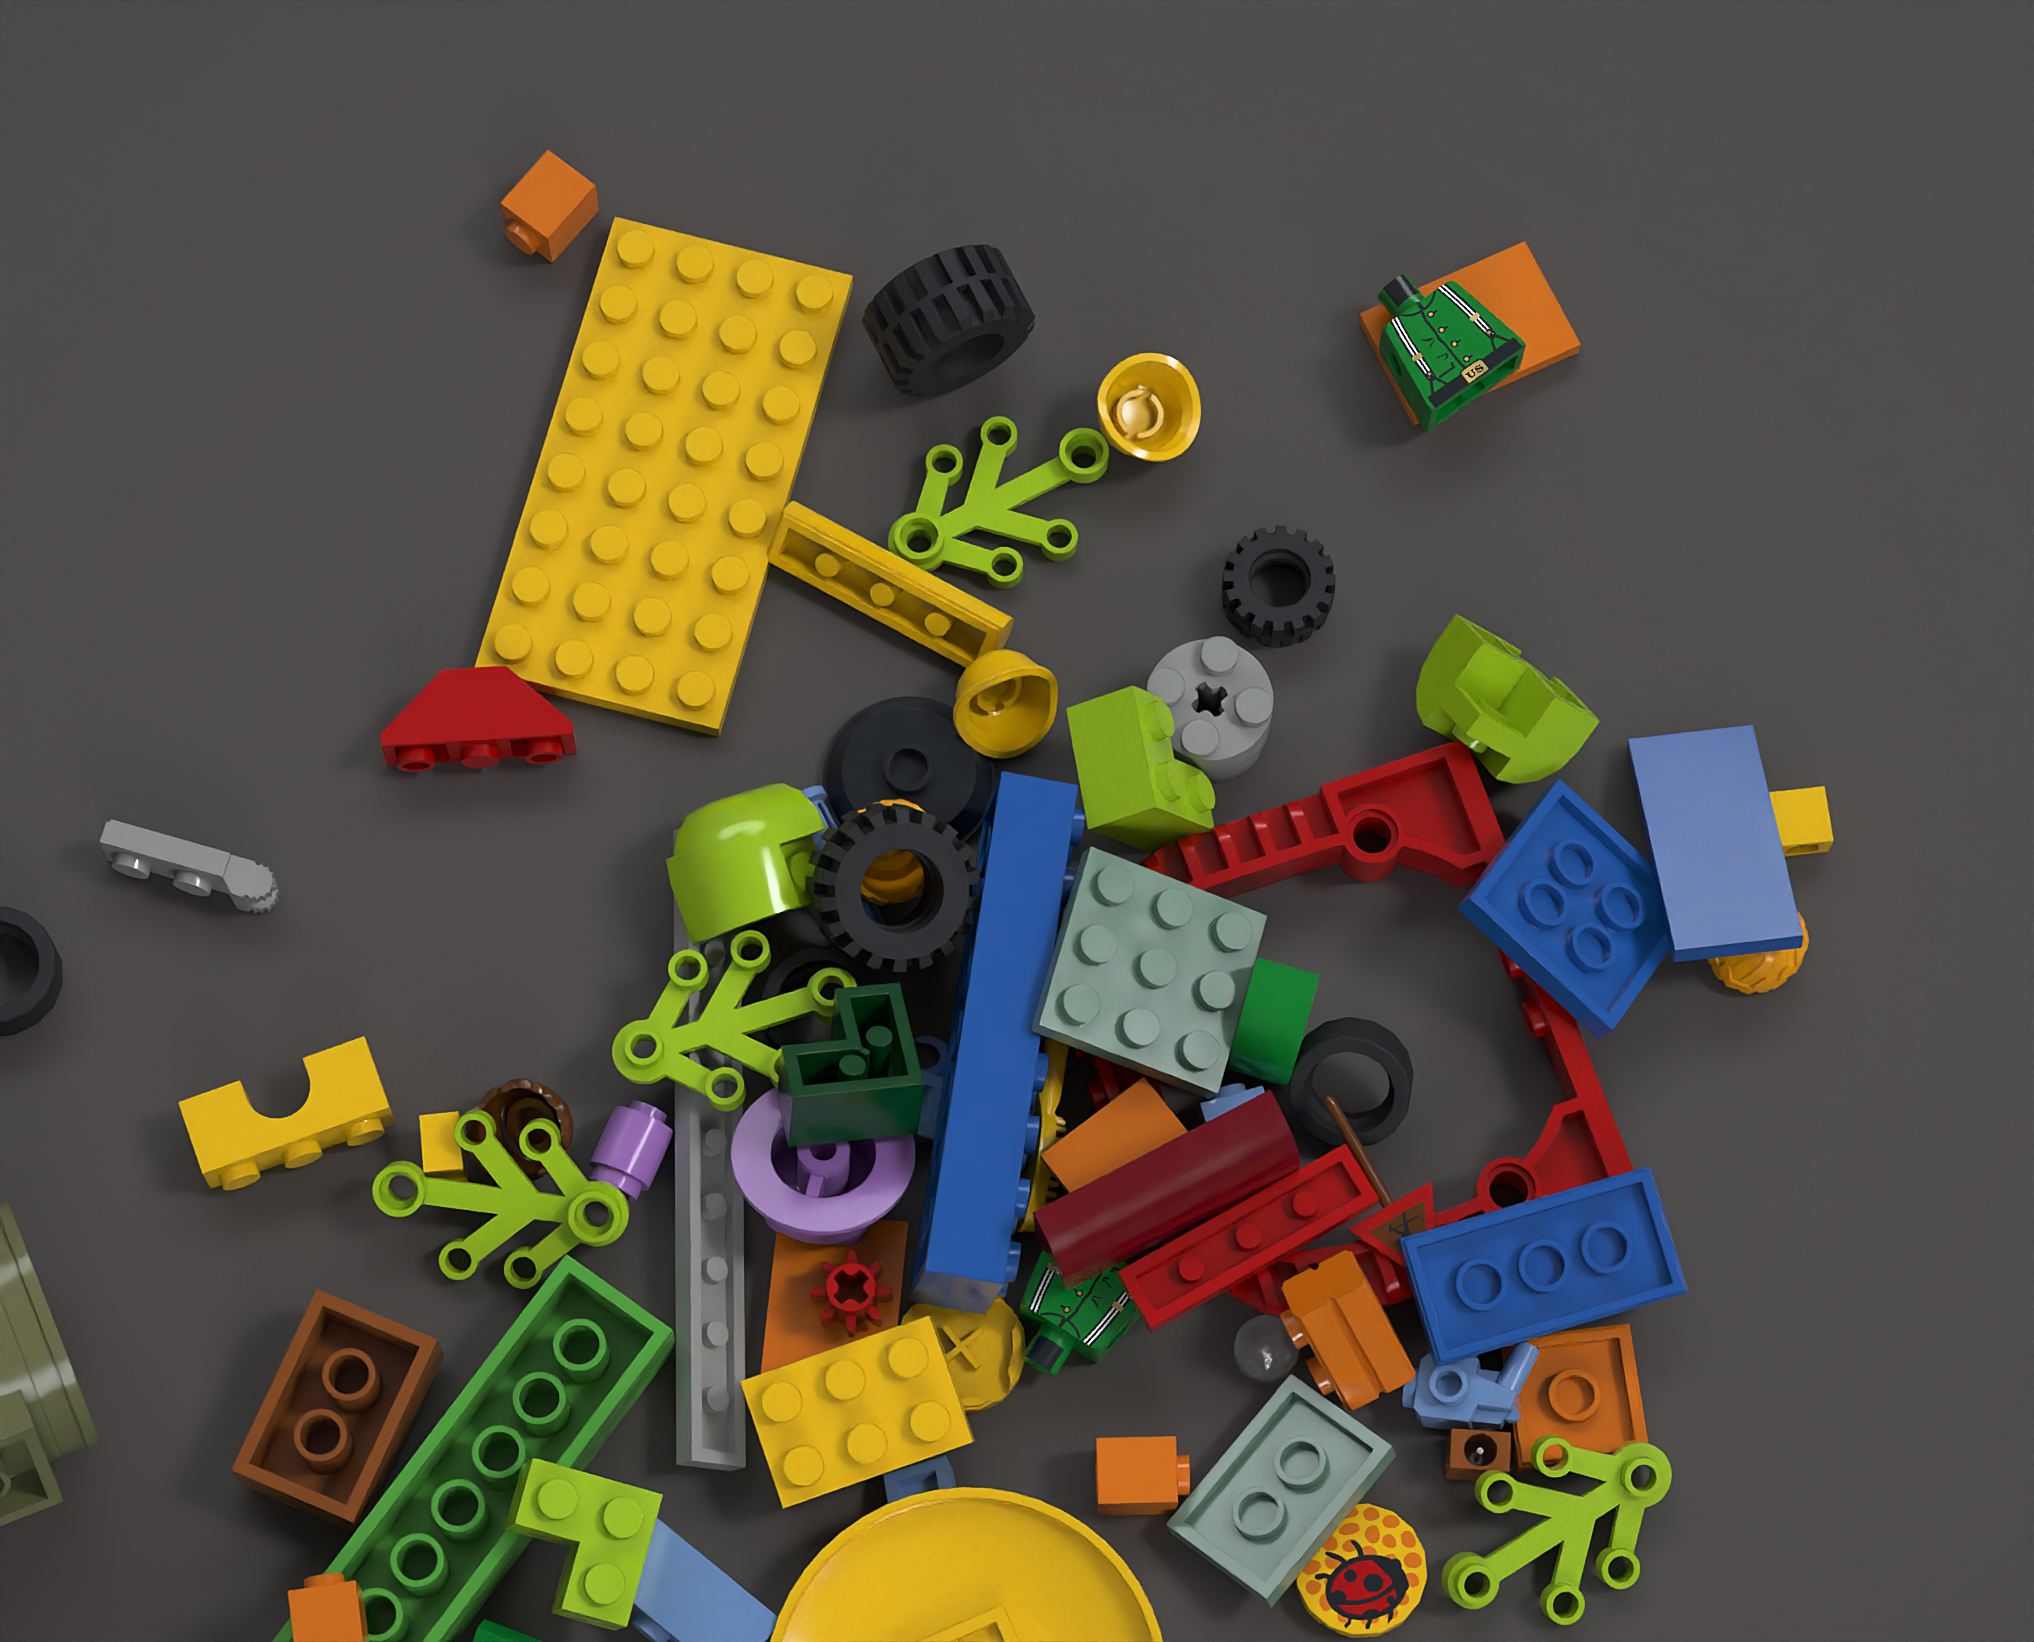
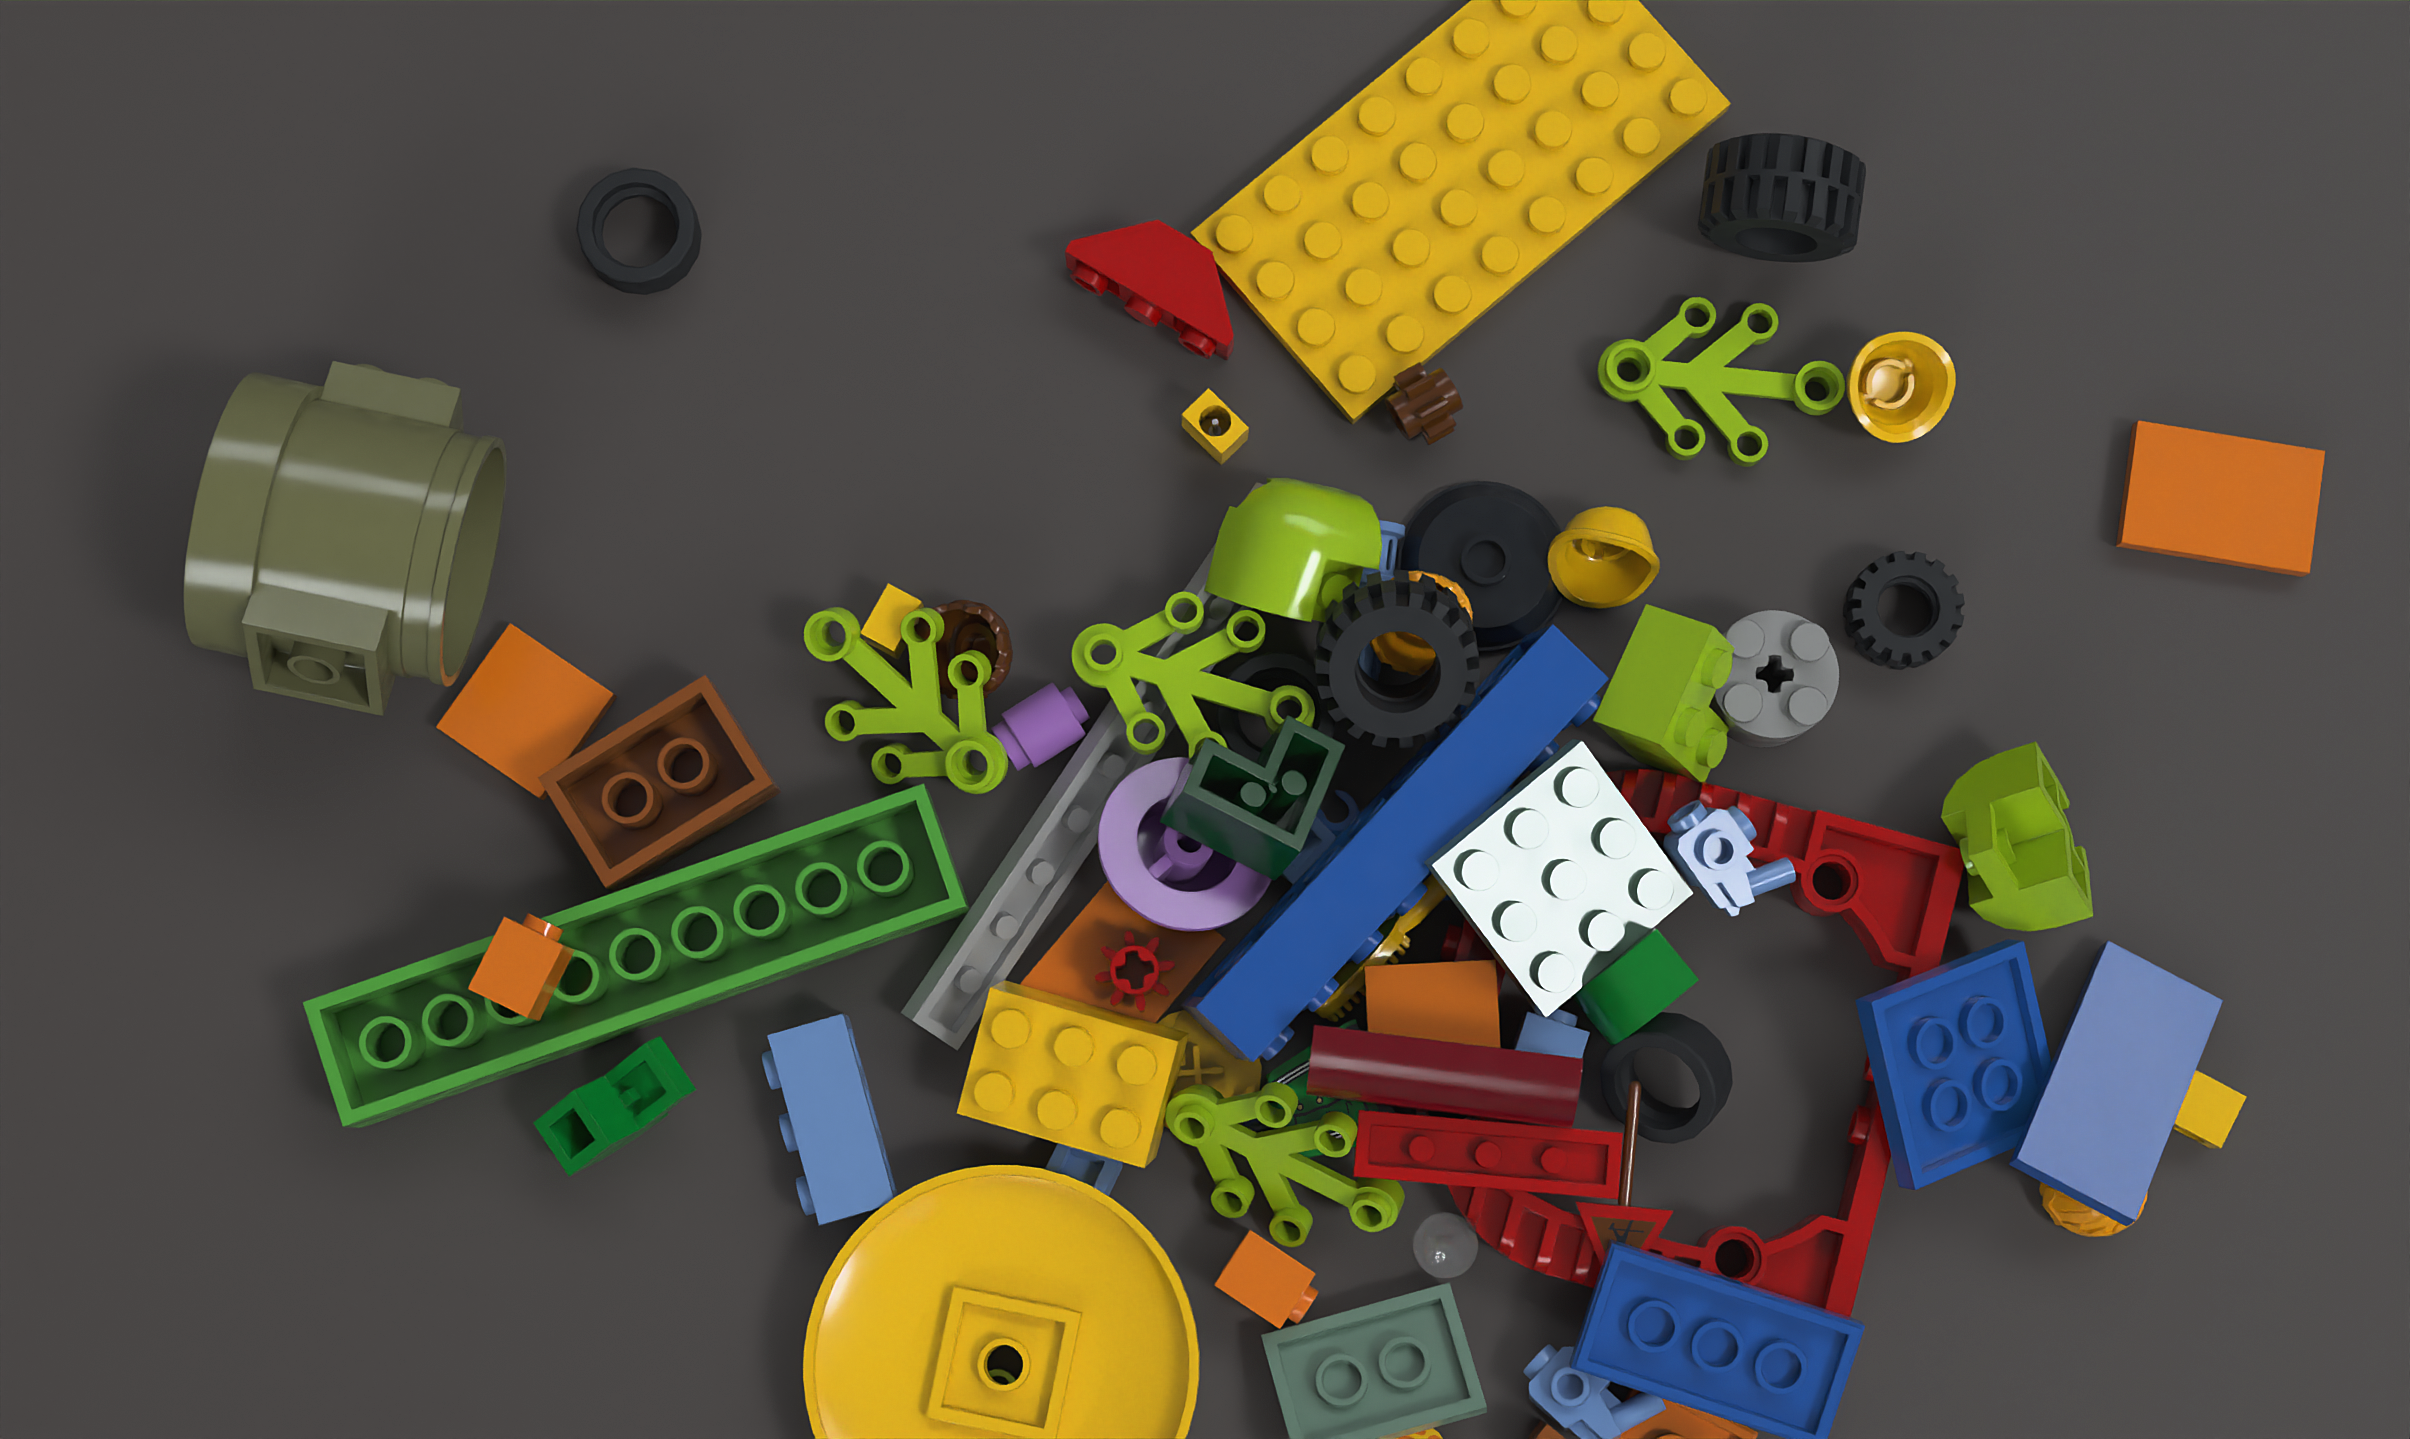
camera: 35 degrees right, 10 degrees up
(174, 1436) = (525, 710): none -> orange tile
(191, 865) = (850, 249): light grey hinge -> none
(342, 1106) = (839, 528): yellow arch -> none
(606, 810) = (1215, 426): none -> yellow piece
(606, 1535) = (794, 1038): lime brick -> none
(768, 676) = (1424, 403): none -> reddish brown gear
(886, 586) = (1575, 392): yellow brick -> none
(1072, 1364) = (1210, 1123): none -> lime plant
(1258, 873) = (1712, 852): none -> piece
(1347, 1331) = (1515, 1285): orange brick -> none
(1444, 348) = (2188, 500): green torso -> none

